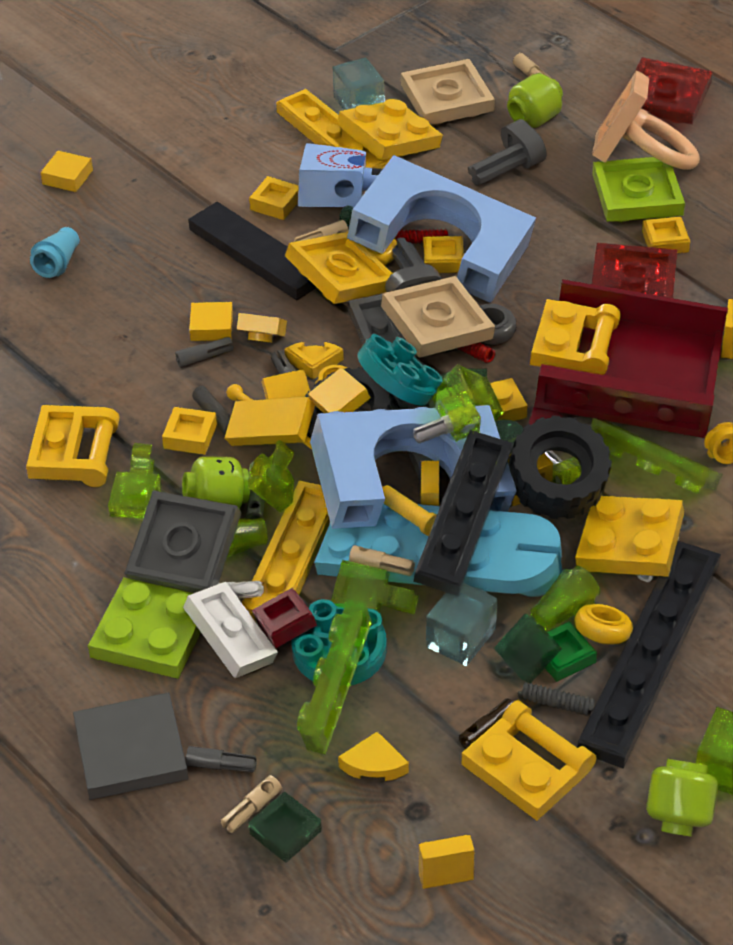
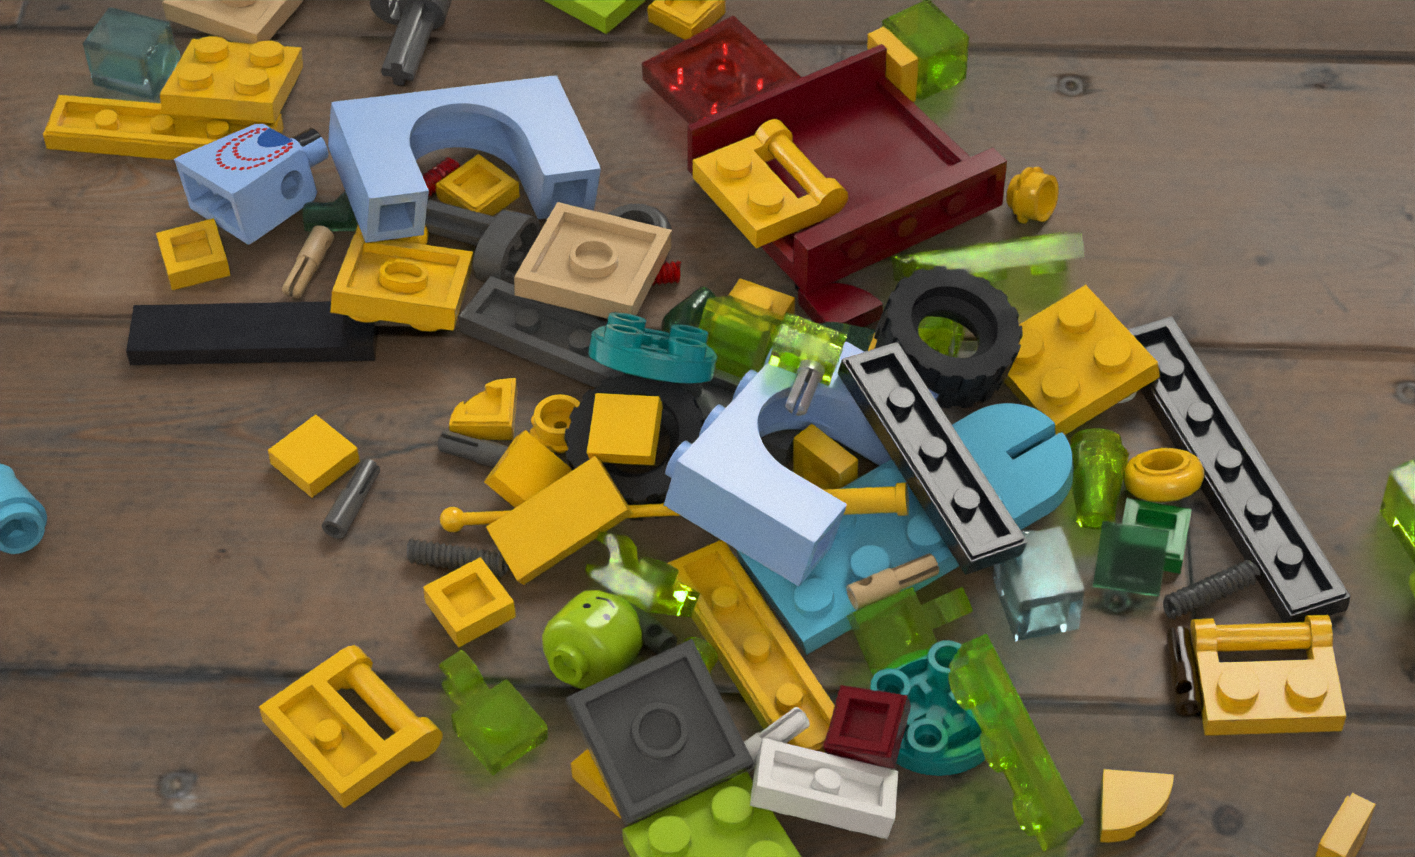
camera: 45 degrees left, 5 degrees up
(261, 327) = (394, 418): yellow plate -> none

